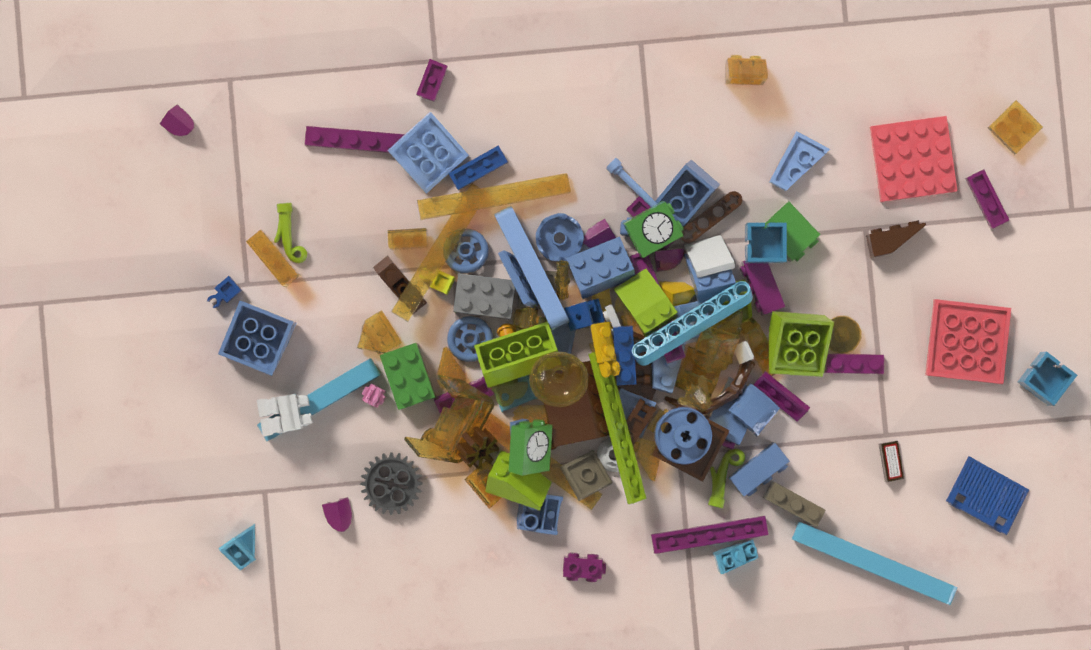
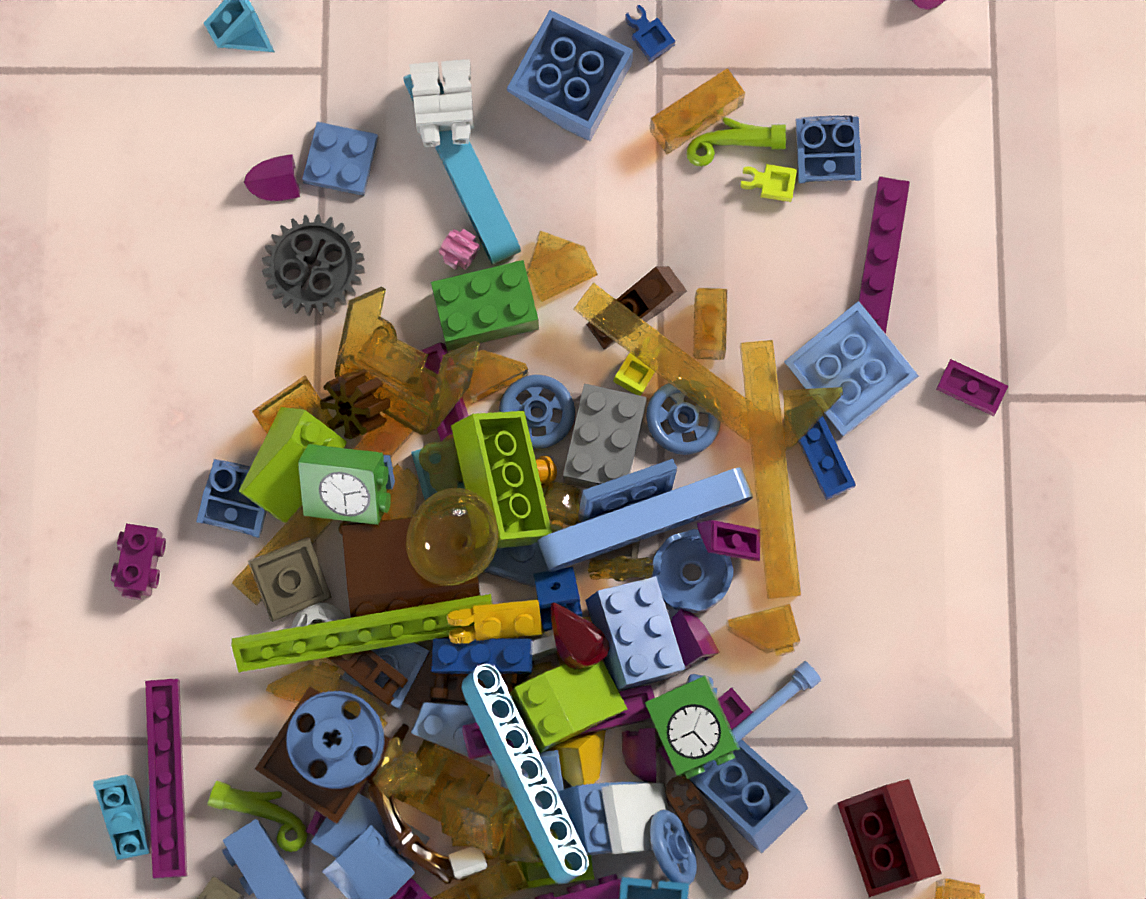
camera: 95 degrees right, 10 degrees down
(289, 176) = (828, 148): none -> medium blue slope
(313, 207) = (776, 182): none -> neon yellow plate
(321, 475) = (340, 158): none -> medium blue plate
(455, 178) = (804, 409): none -> clear yellow tile
(540, 216) = (730, 539): none -> magenta slope
(589, 189) = (768, 630): none -> clear yellow slope
(609, 300) = (577, 639): none -> dark red piece
(704, 111) = (889, 837): none -> dark red slope
(723, 234) = (673, 847): none -> medium blue plate

